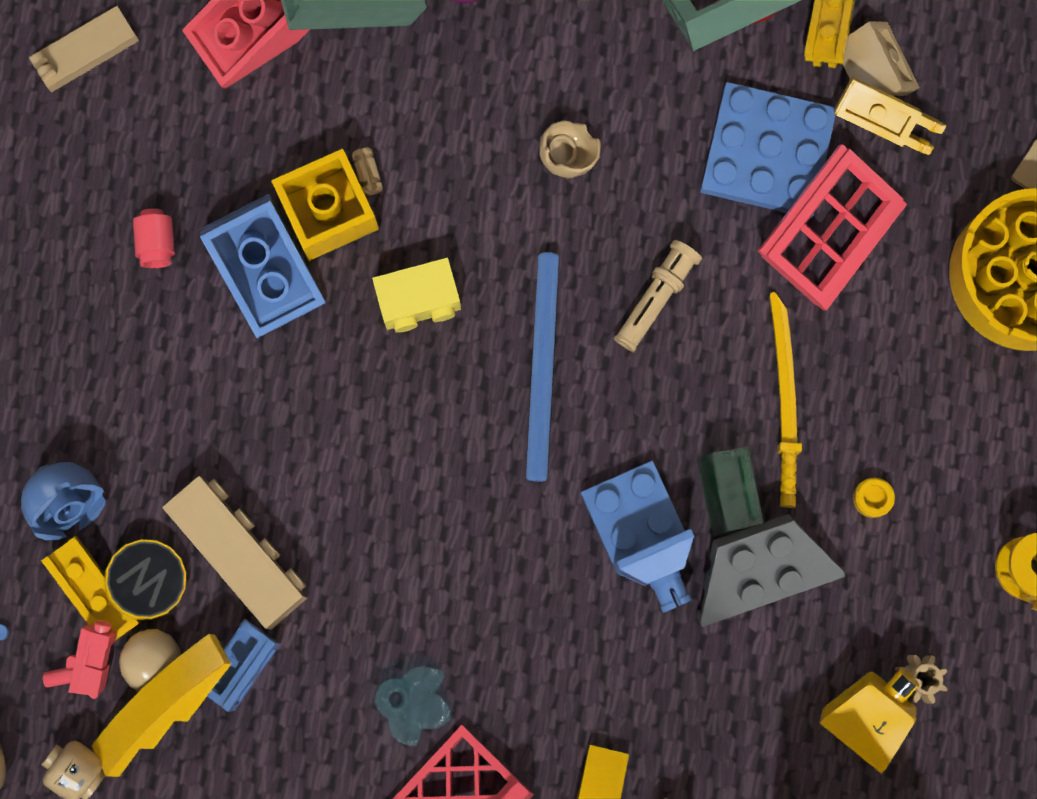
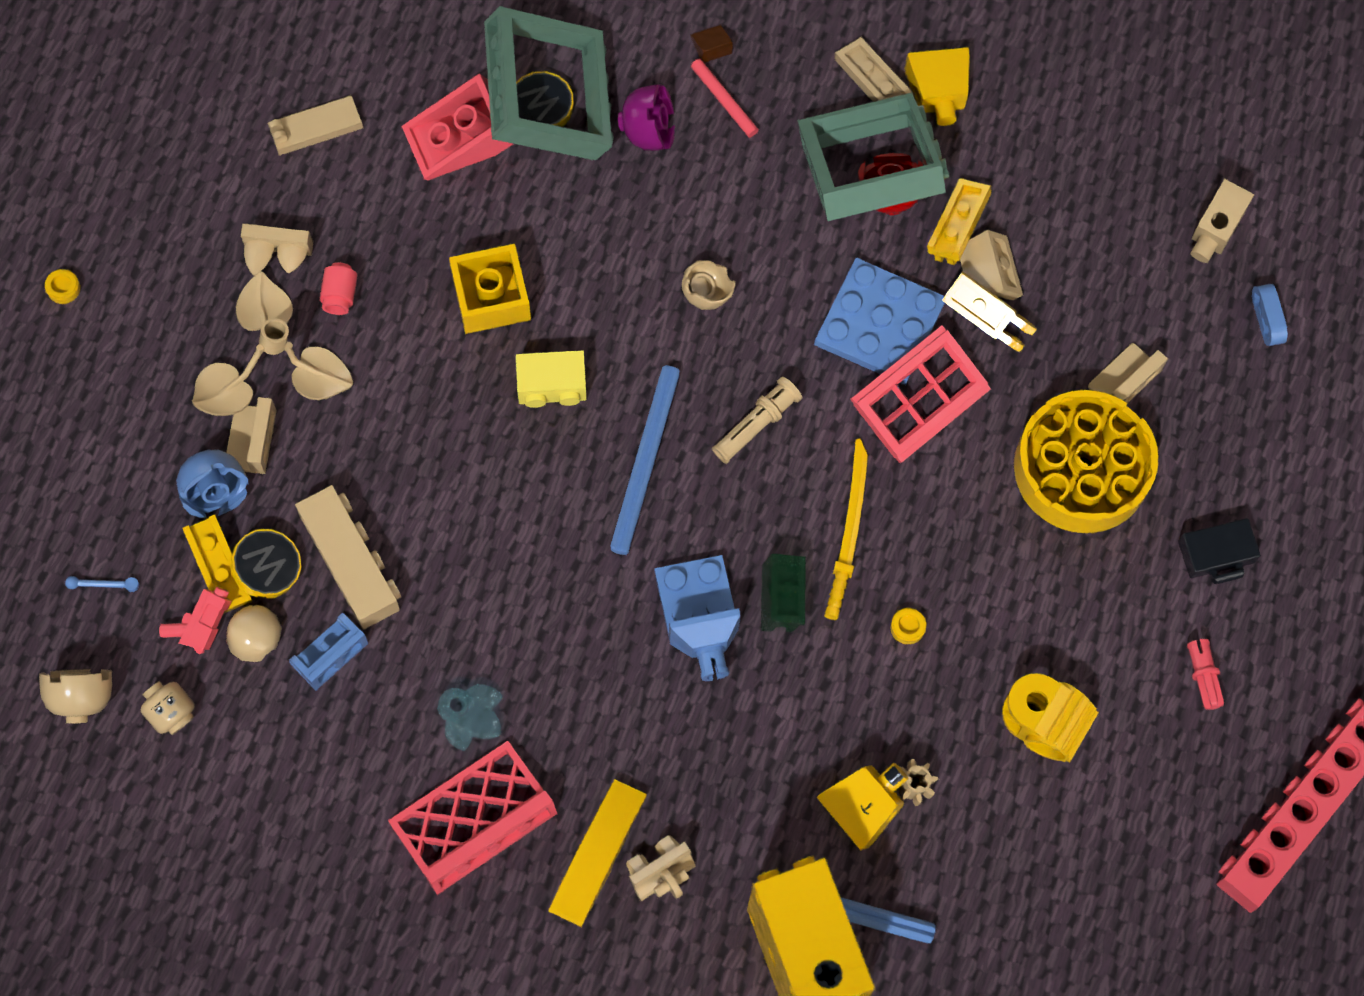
camera: 10 degrees right, 10 degrees down
(55, 200) = (263, 240): none -> tan tile
(78, 275) = (268, 308): none -> tan plant
(95, 431) = (252, 435): none -> tan panel
(165, 699) = (262, 660): yellow slope -> none
(262, 265) = (425, 329): medium blue slope -> none
(367, 171) = (532, 270): tan piece -> none
(762, 568) = (797, 661): wing -> none

